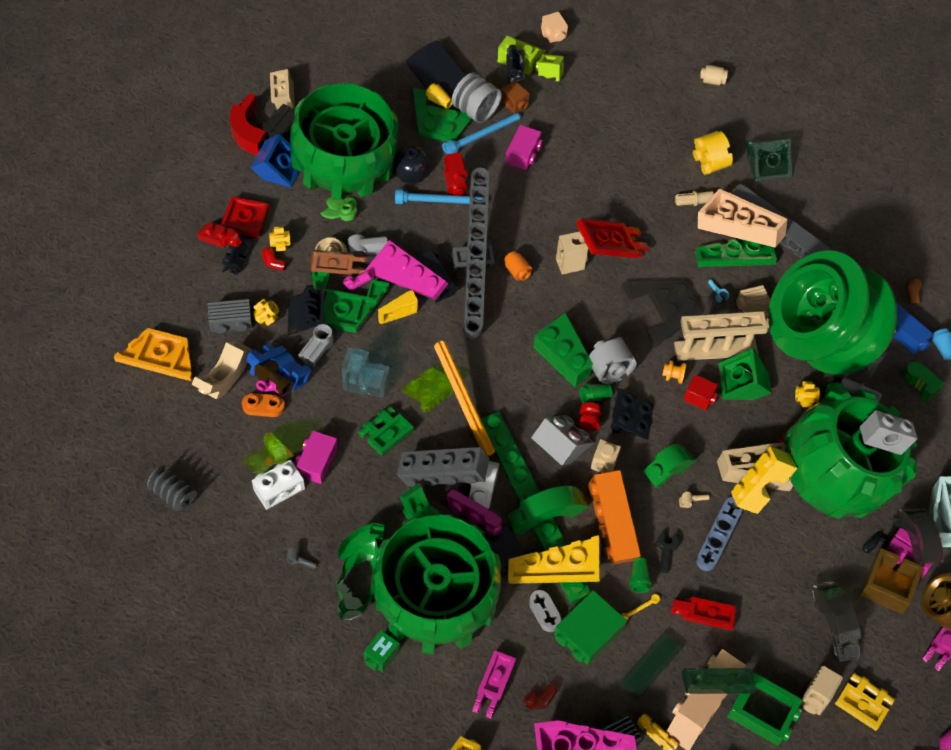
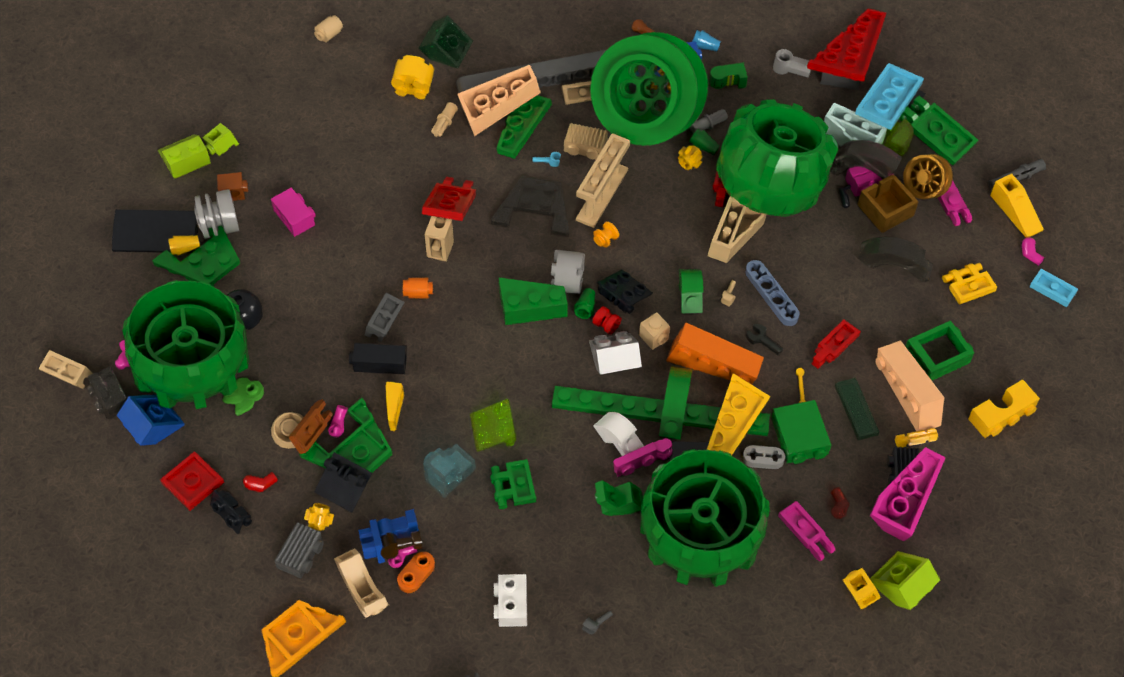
camera: 55 degrees left, 0 degrees up
(219, 235) = (201, 512): red hinge -> none
(244, 134) = (85, 431): red arch -> none
(273, 454) = (478, 593): clear neon green hinge -> none
(279, 238) = (243, 462): yellow gear -> none
(316, 456) = (504, 553): dark pink brick -> none
(317, 346) = (386, 493): light grey piece -> none
(355, 549) = (624, 558): green animal -> none
(366, 246) = (305, 397): light grey piece -> none
(381, 651) = (729, 601): green brick -> none
(400, 268) = (354, 379): dark pink wing -> none
(402, 197) = (270, 337): dark azure piece -> none
(443, 466) = (590, 454): dark grey brick -> none
(453, 146) = (246, 267): dark azure piece -> none
(455, 174) = (286, 279): red brick -> none
(464, 398) = (528, 402): light orange axle -> none
(476, 261) = (395, 316): dark grey beam -> none
(514, 64) = (203, 164): black hinge -> none
(554, 27) = (177, 112): light nougat brick -> none
(640, 576) = (777, 370): green cone -> none
(701, 392) = (638, 228): red brick -> none
(718, 680) = (908, 364): clear green tile -> none
(744, 377) = (644, 190): green slope -> none
(771, 466) = (755, 214): yellow arch -> none
(821, 690) = (950, 303): tan brick -> none
(888, 432) = (792, 115): light grey brick -> none

